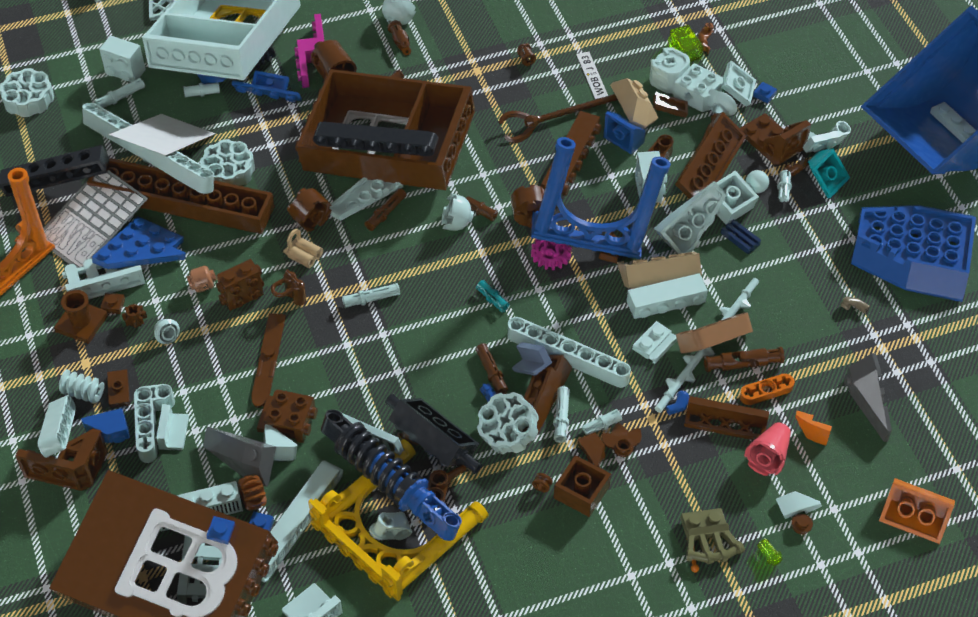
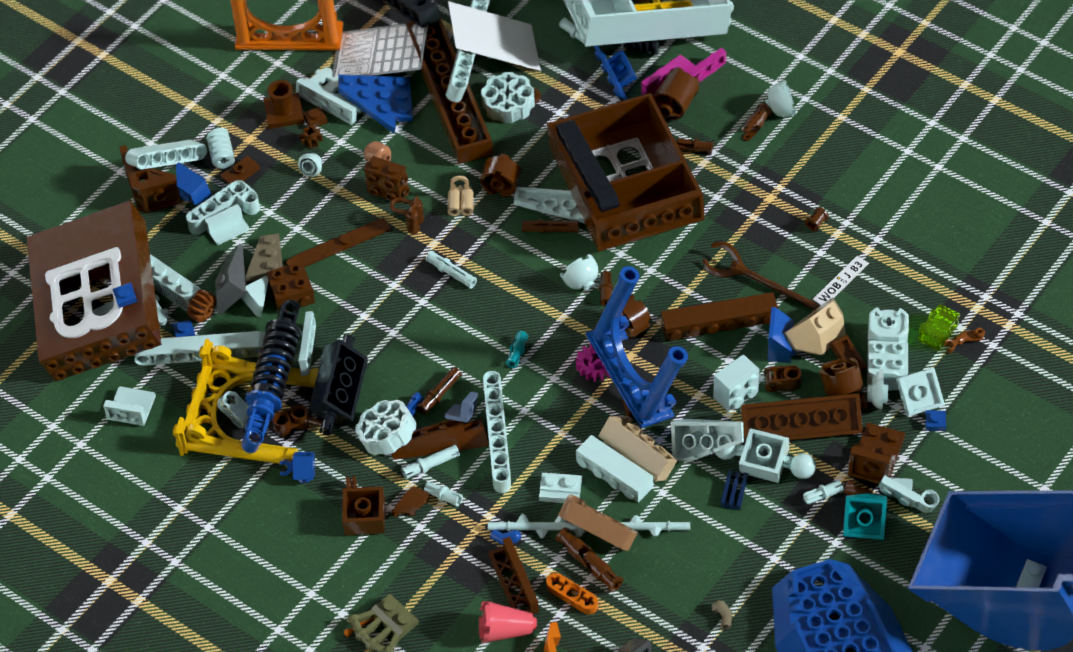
camera: 60 degrees right, 0 degrees up
(239, 416) = (265, 258): none -> dark tan wing
(498, 507) = (302, 466): none -> blue brick
(621, 438) = (439, 515): reddish brown plate -> none
(694, 115) = (841, 377): none -> reddish brown brick

